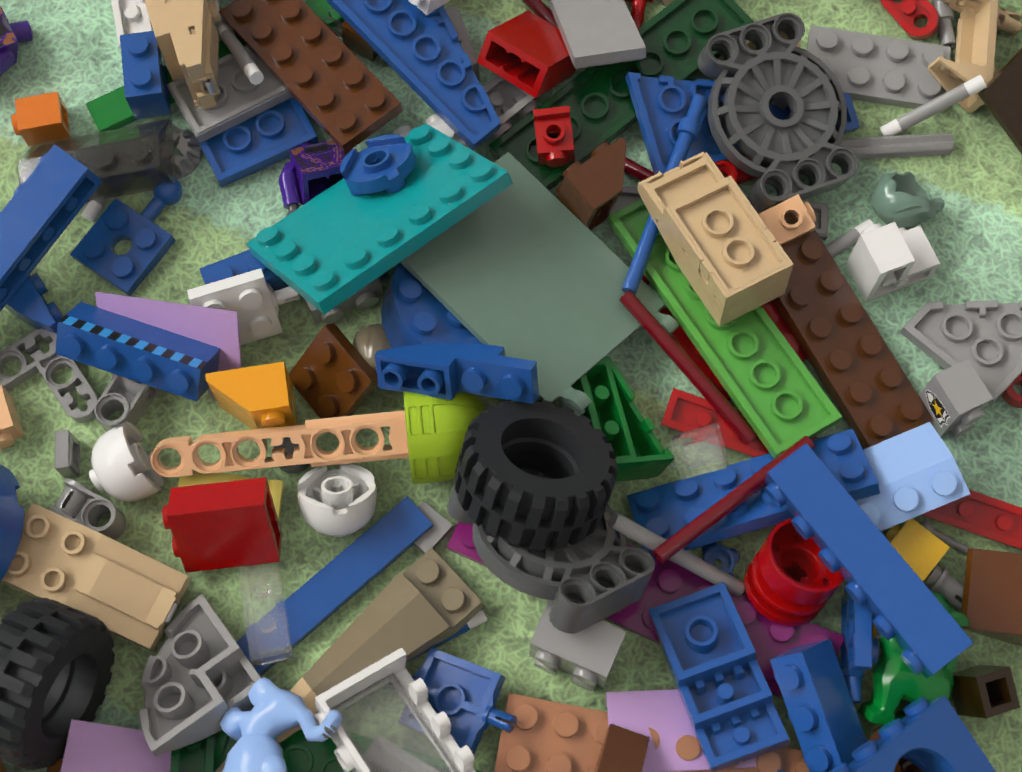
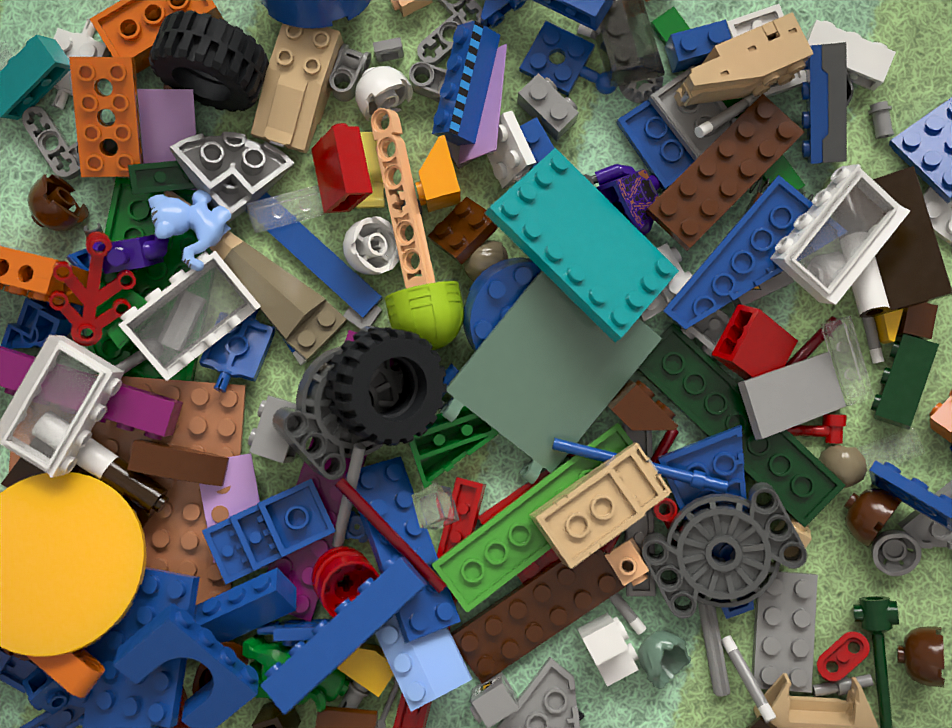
camera: 85 degrees right, 15 degrees up
(178, 262) = (543, 101): none -> light grey brick
(378, 166) = (618, 247): blue plate -> none
(451, 368) = (460, 310): blue slope -> none
(550, 123) = (692, 376): red brick -> none
(688, 367) = (498, 493): dark red piece -> none

